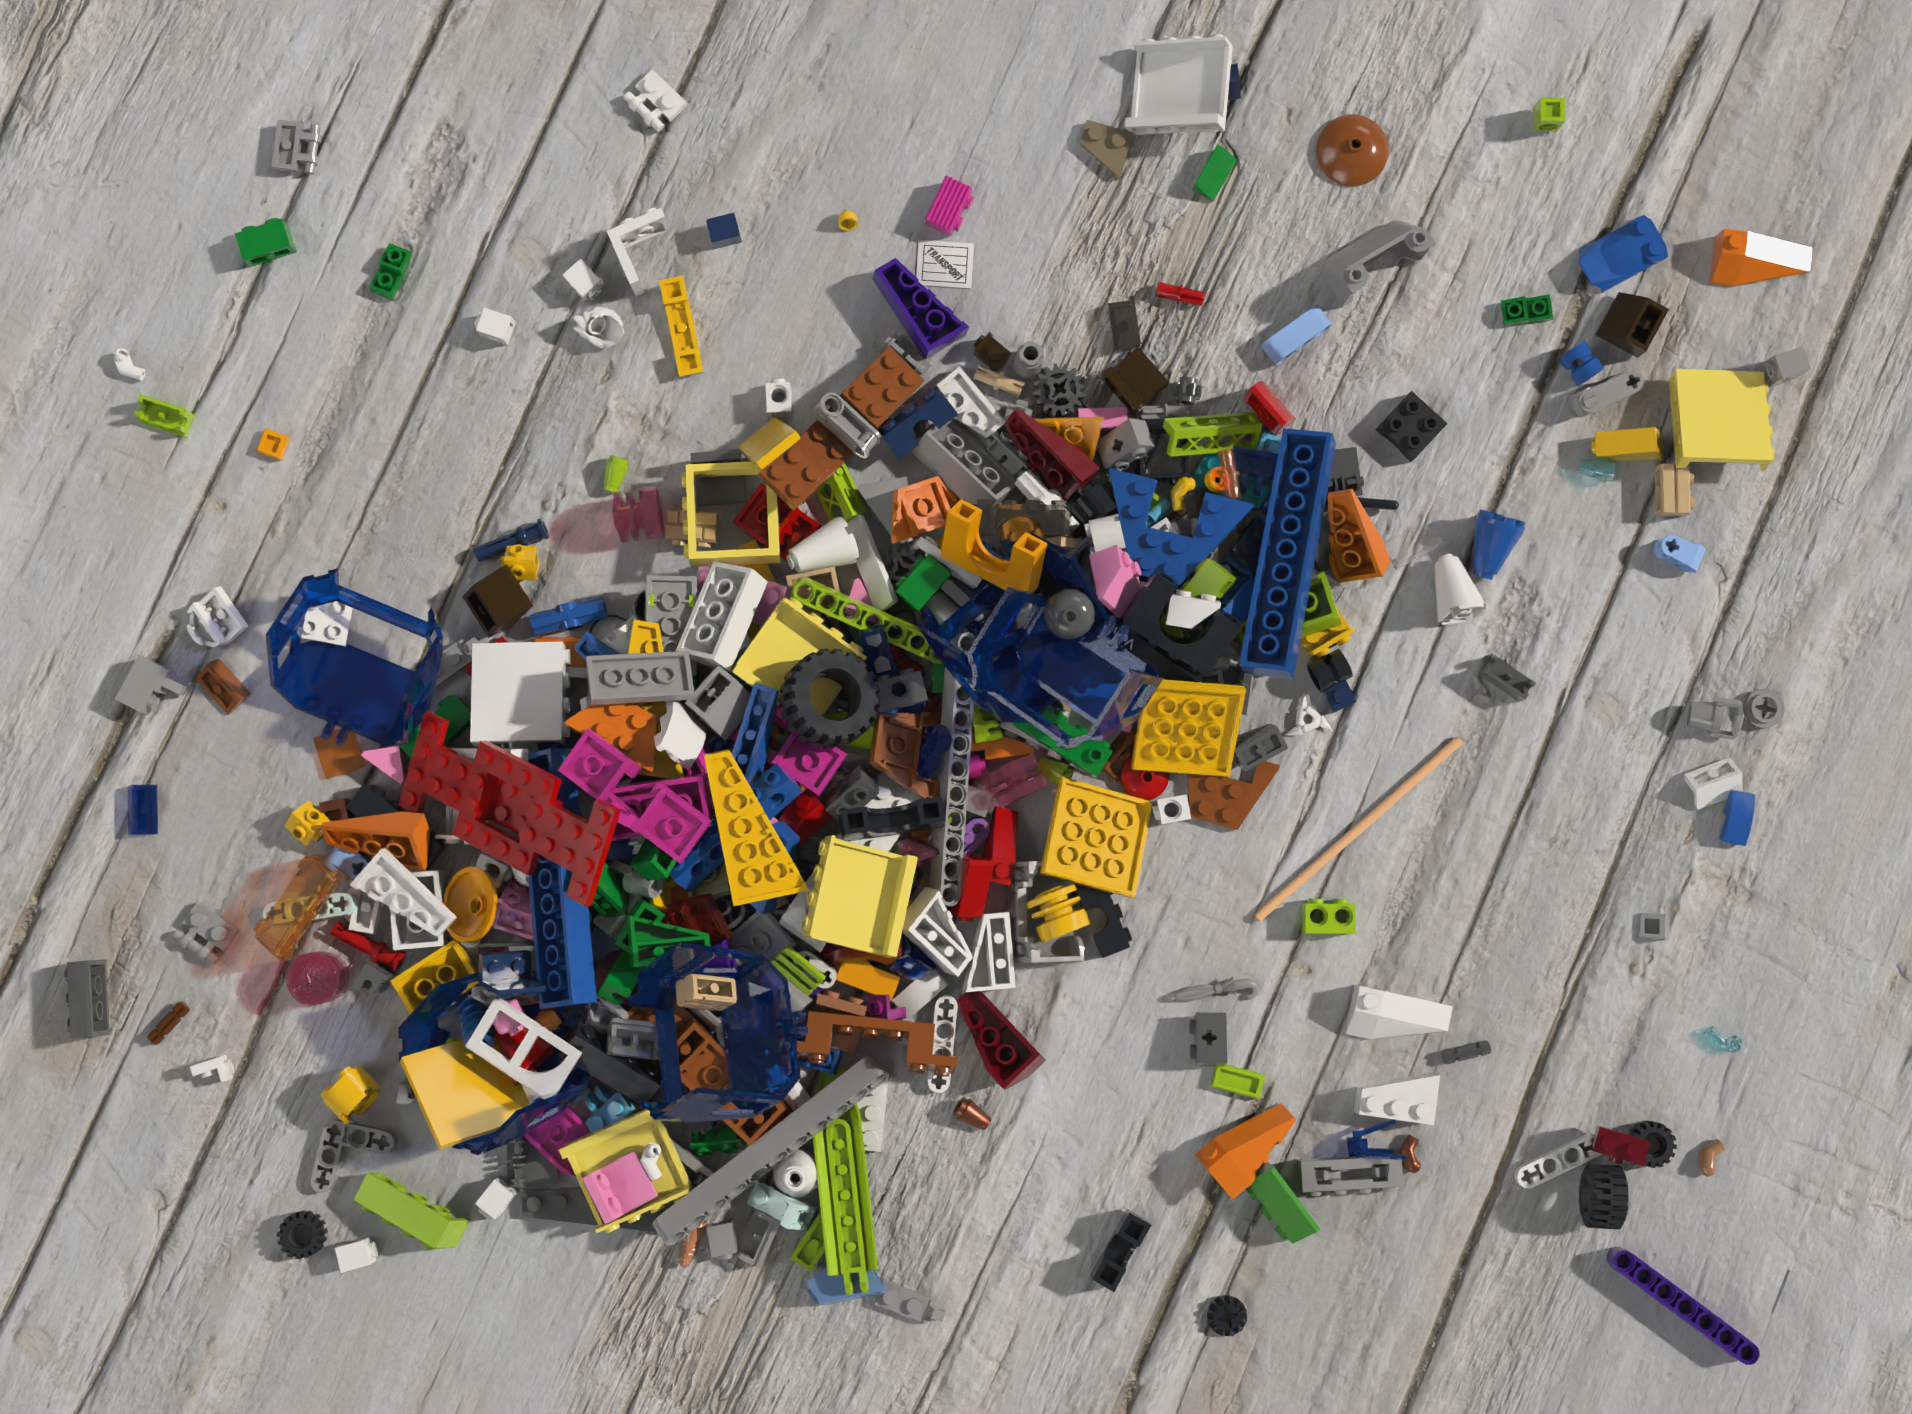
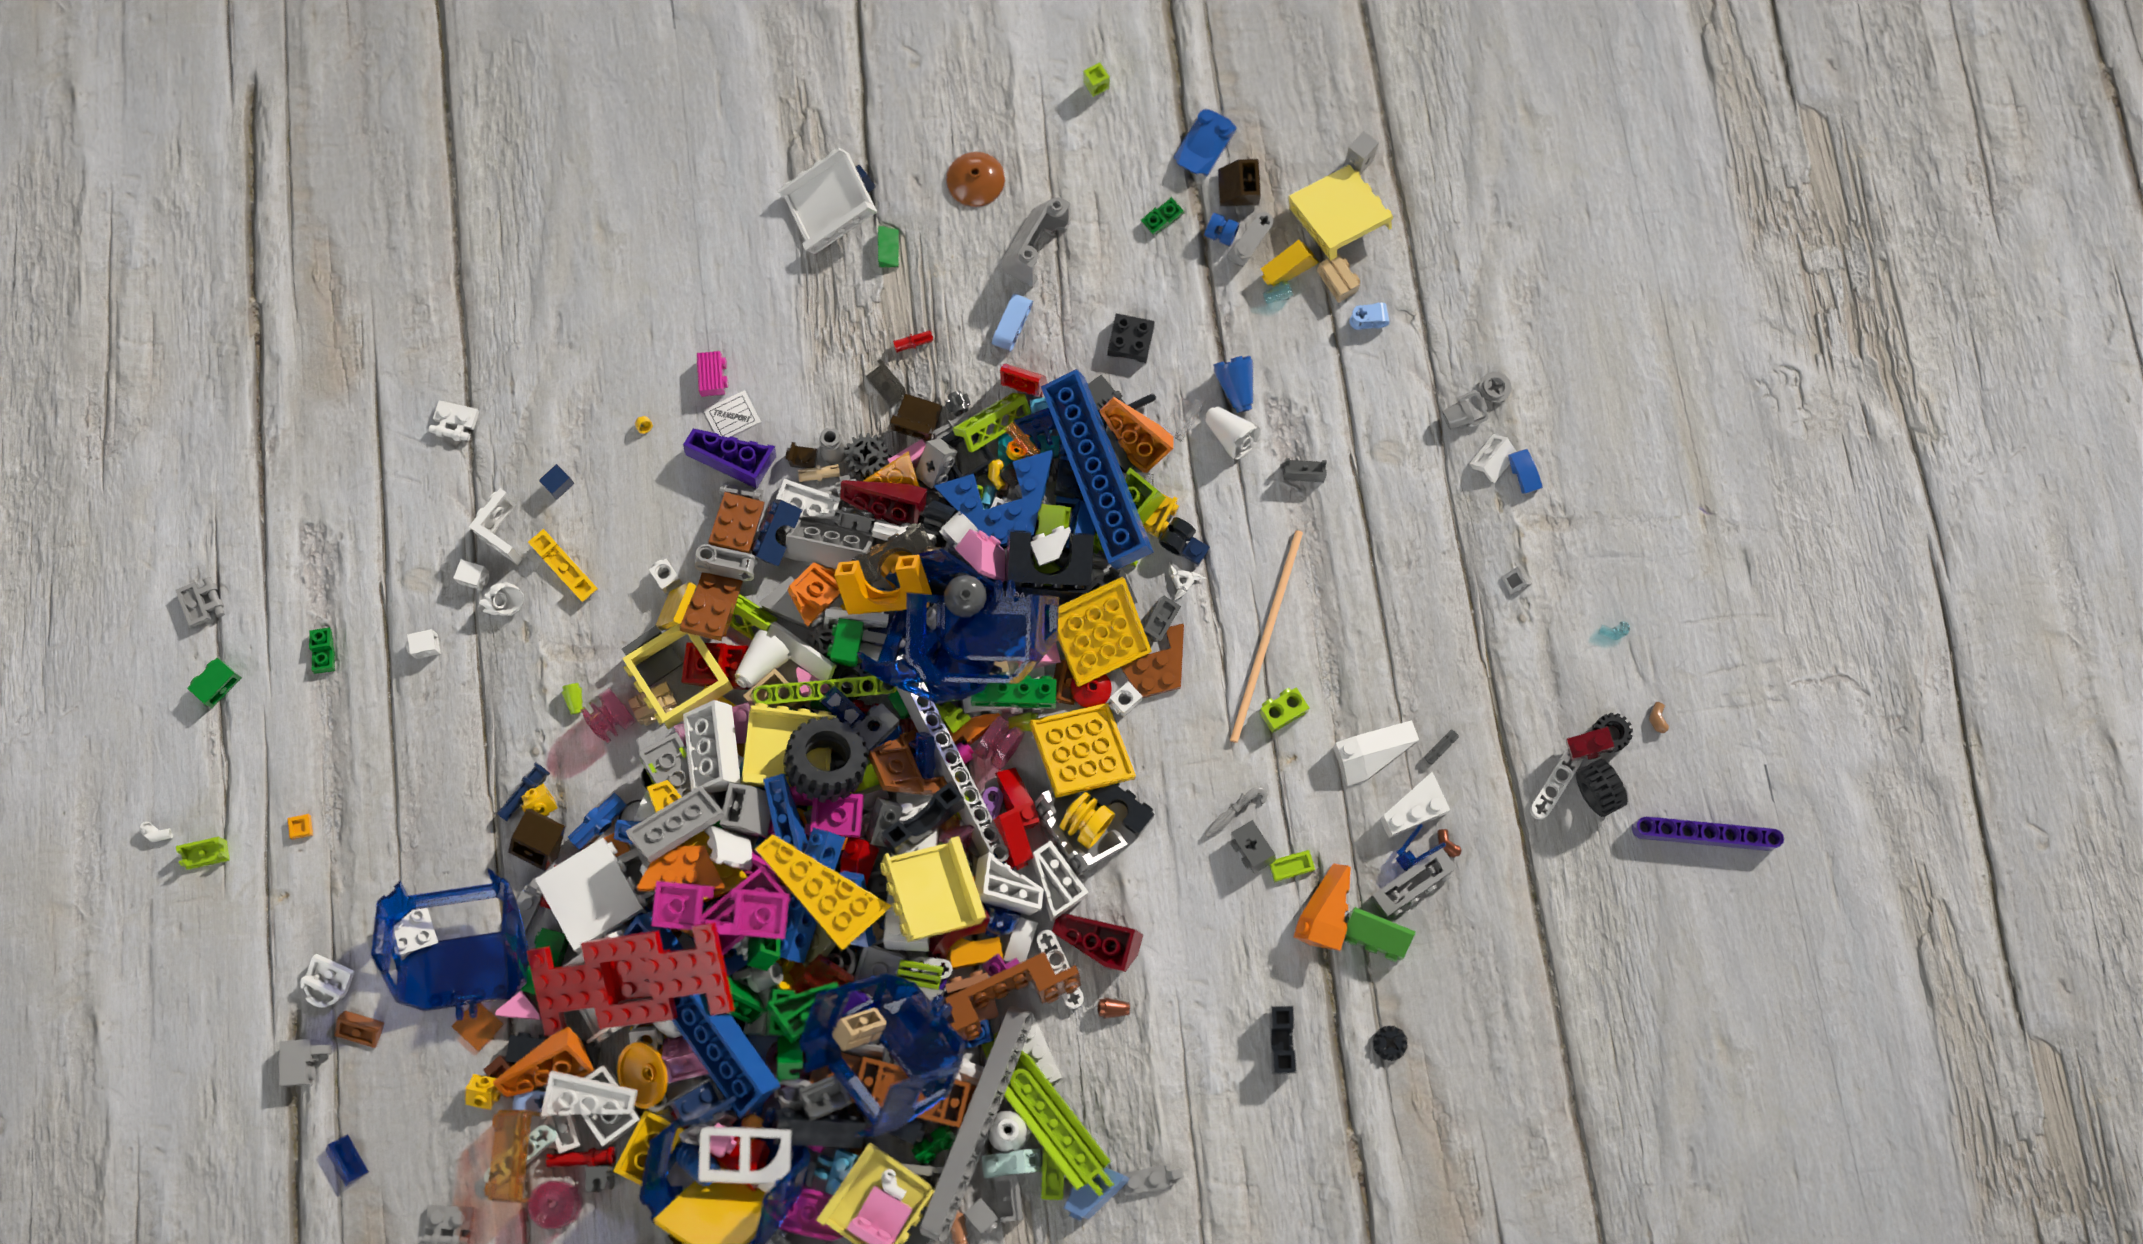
camera: 25 degrees left, 10 degrees down
(980, 800) = (982, 775): light grey brick -> none
(1107, 145) = (800, 270): dark tan wing -> none
(1751, 257) = (1295, 95): orange wedge -> none

